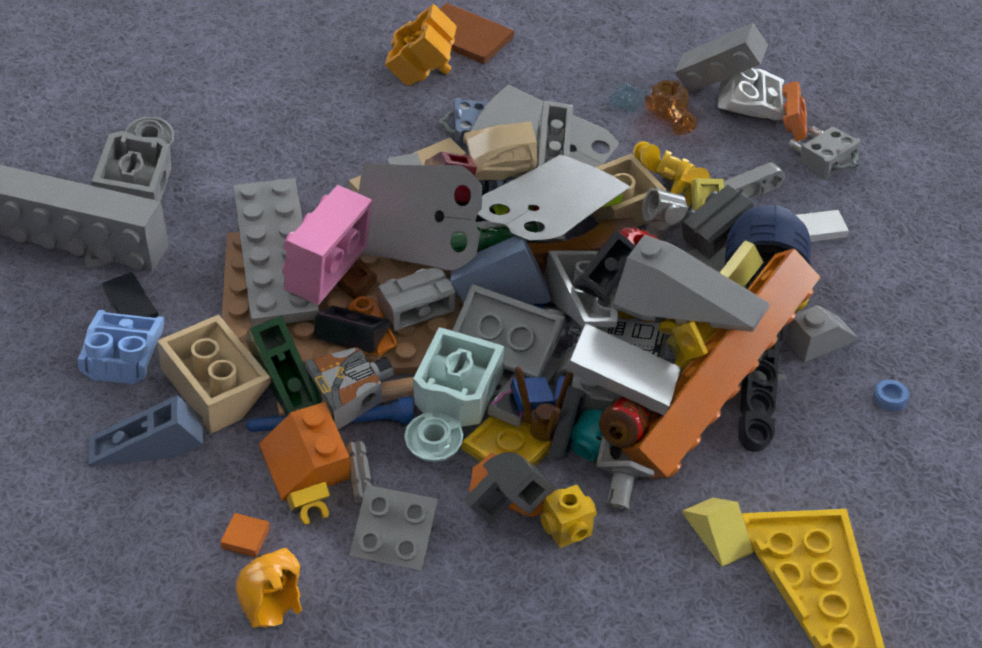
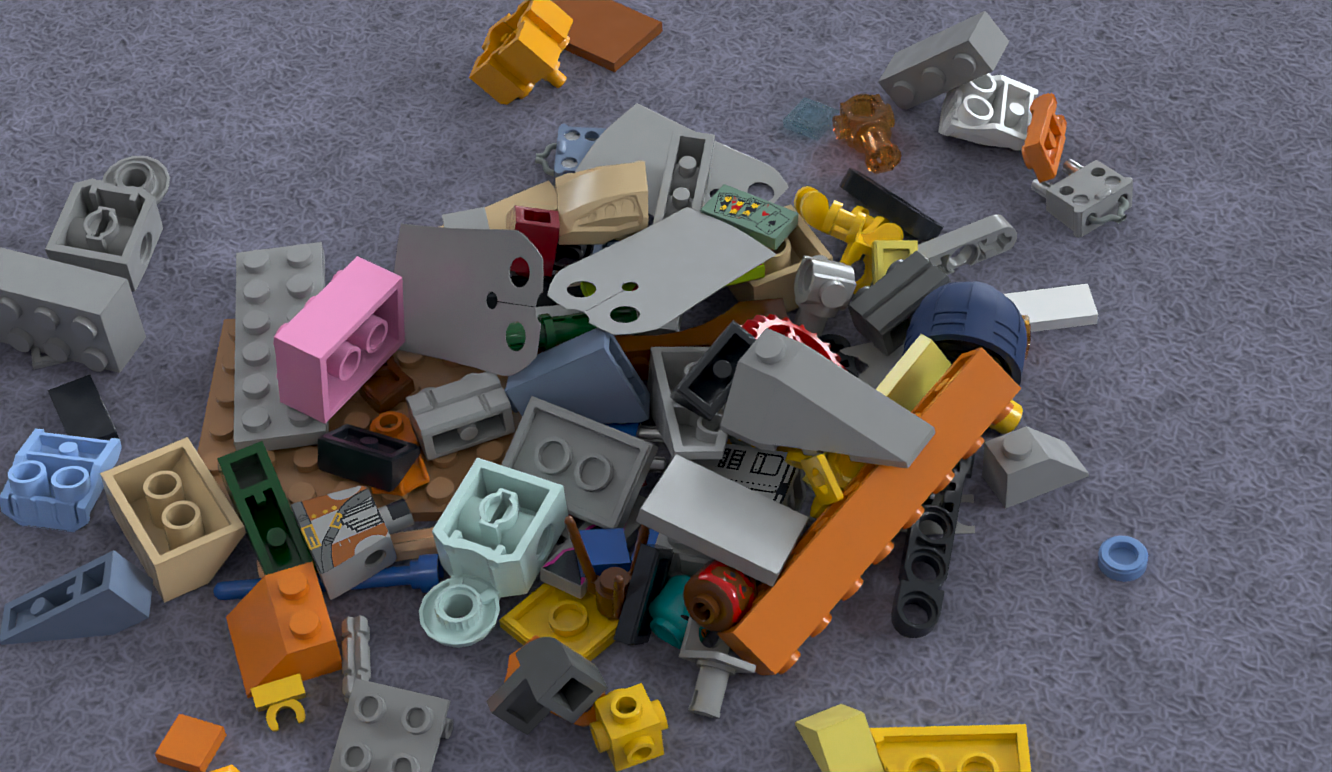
camera: 10 degrees right, 0 degrees up
(607, 159) = (752, 215): none -> sand green tile
(694, 155) = (890, 205): none -> black beam

